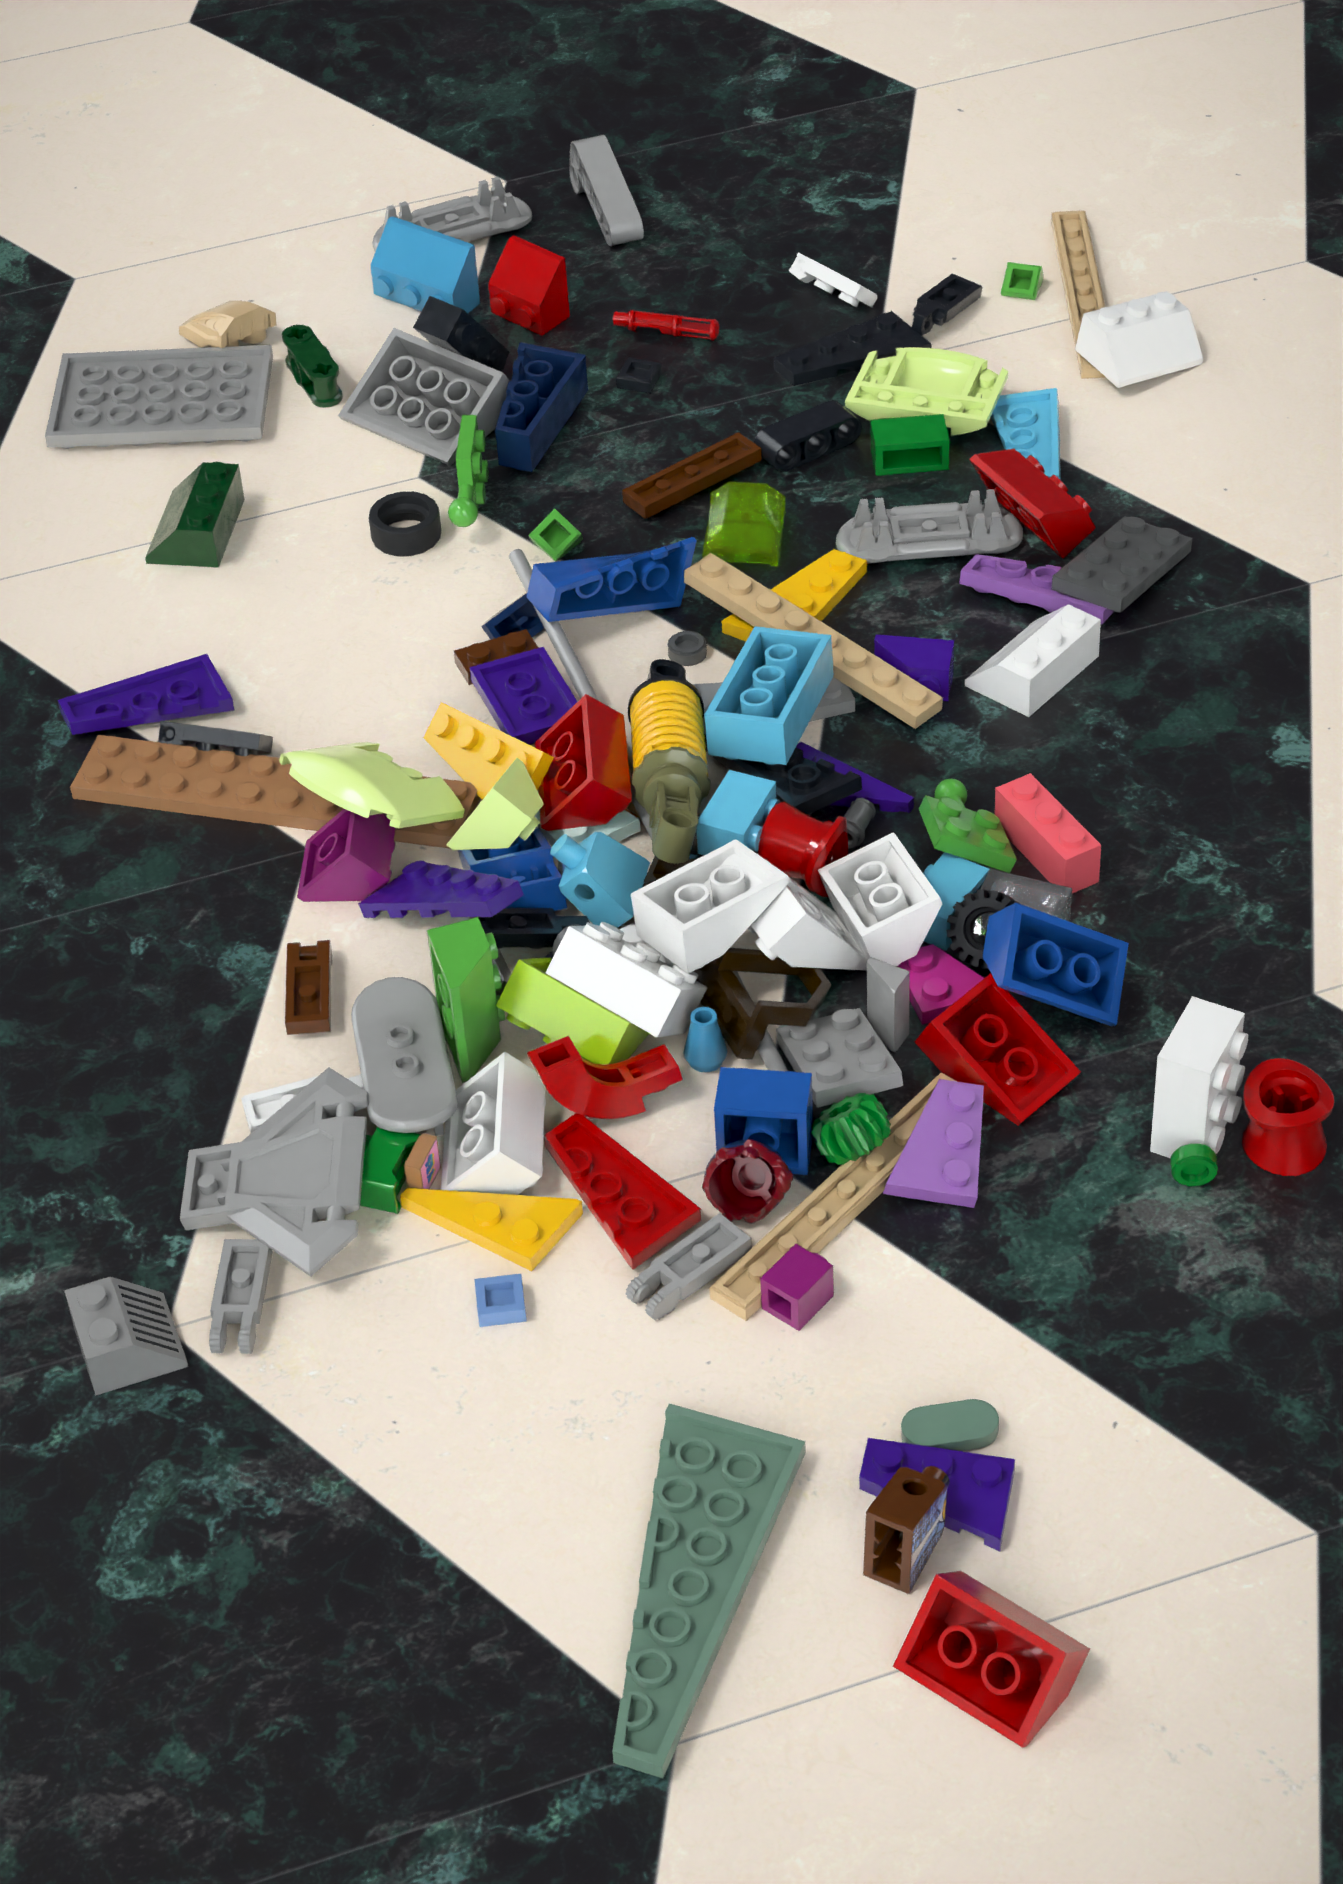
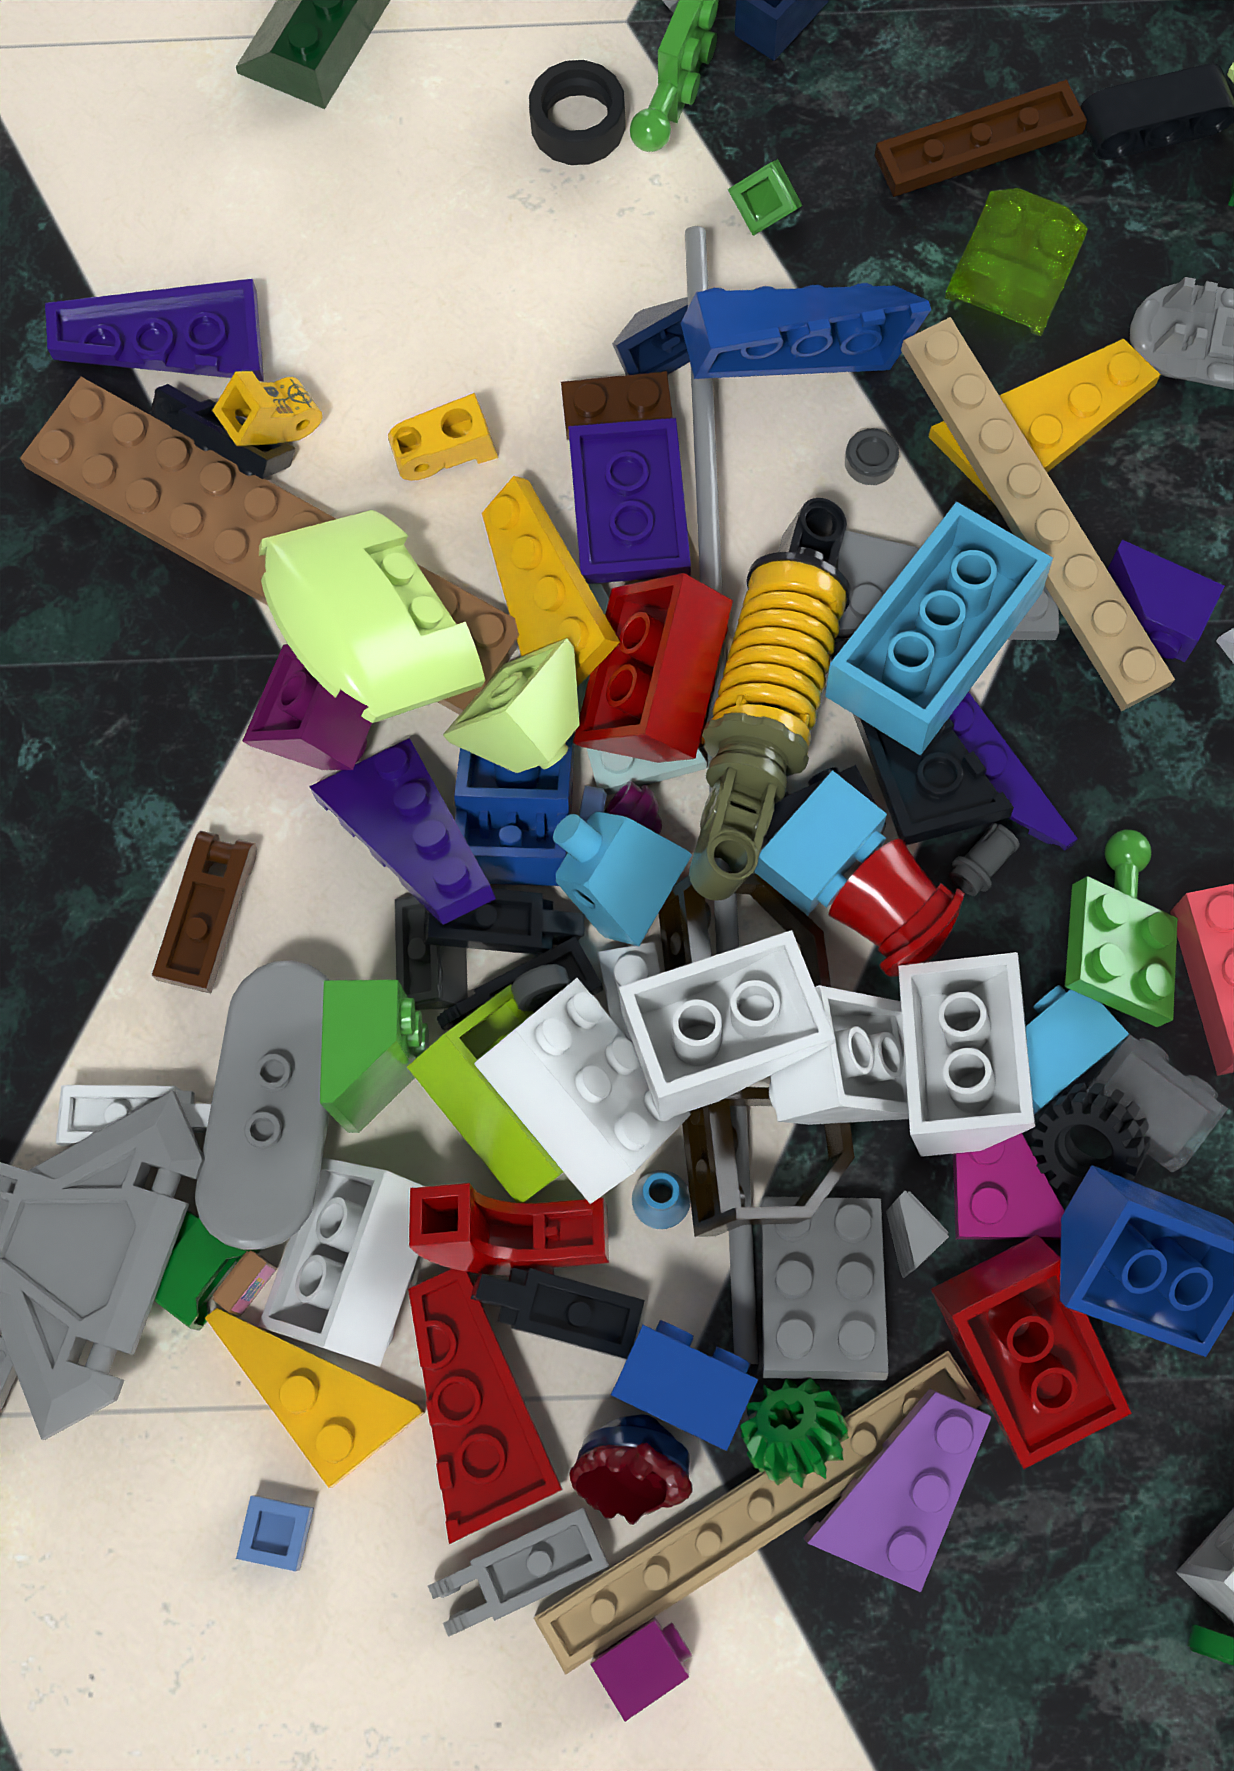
camera: 20 degrees right, 30 degrees up
(247, 710) = (273, 410): none -> yellow leg
(380, 703) = (441, 439): none -> yellow leg
(656, 1116) = (563, 1310): none -> black hinge

